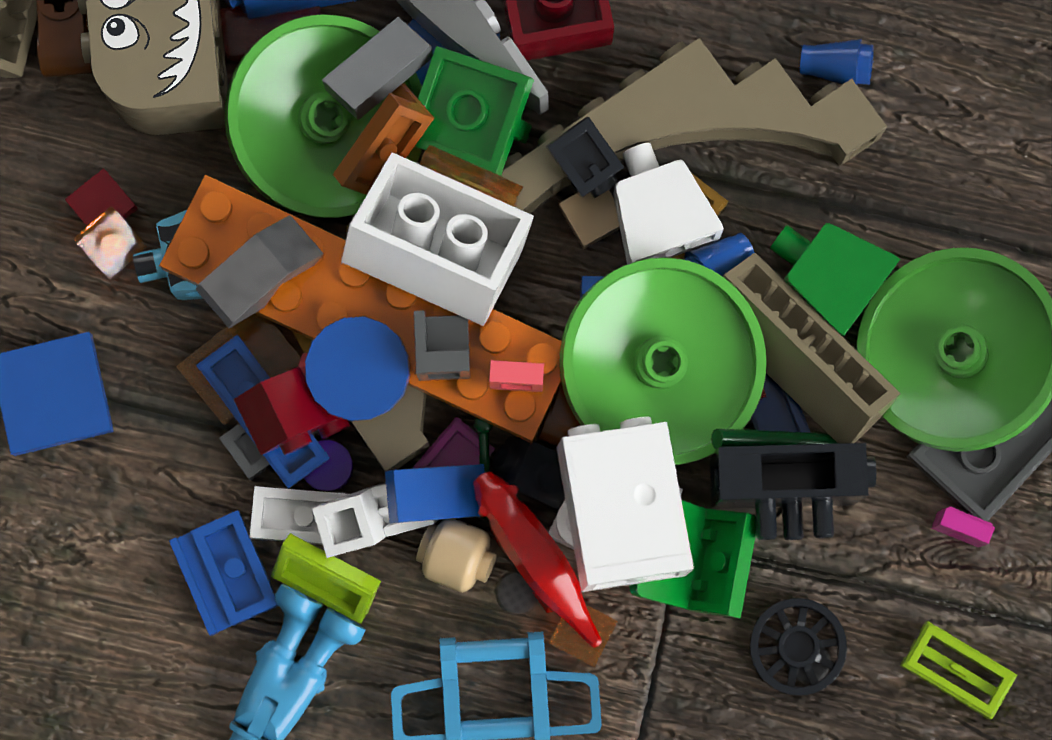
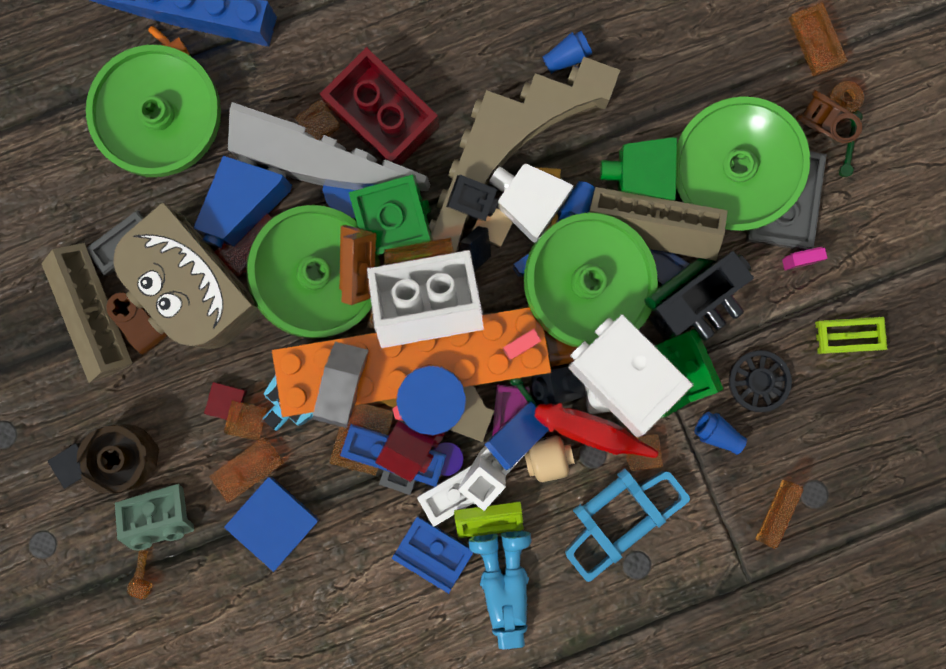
camera: 30 degrees left, 5 degrees up
(67, 306) = (246, 469): none -> clear orange plate
(378, 68) = (324, 226): dark grey tile -> none
(441, 347) = (469, 356): dark grey panel -> none
(551, 226) = (479, 246): none -> black tile
(697, 674) = (718, 432): none -> blue cone

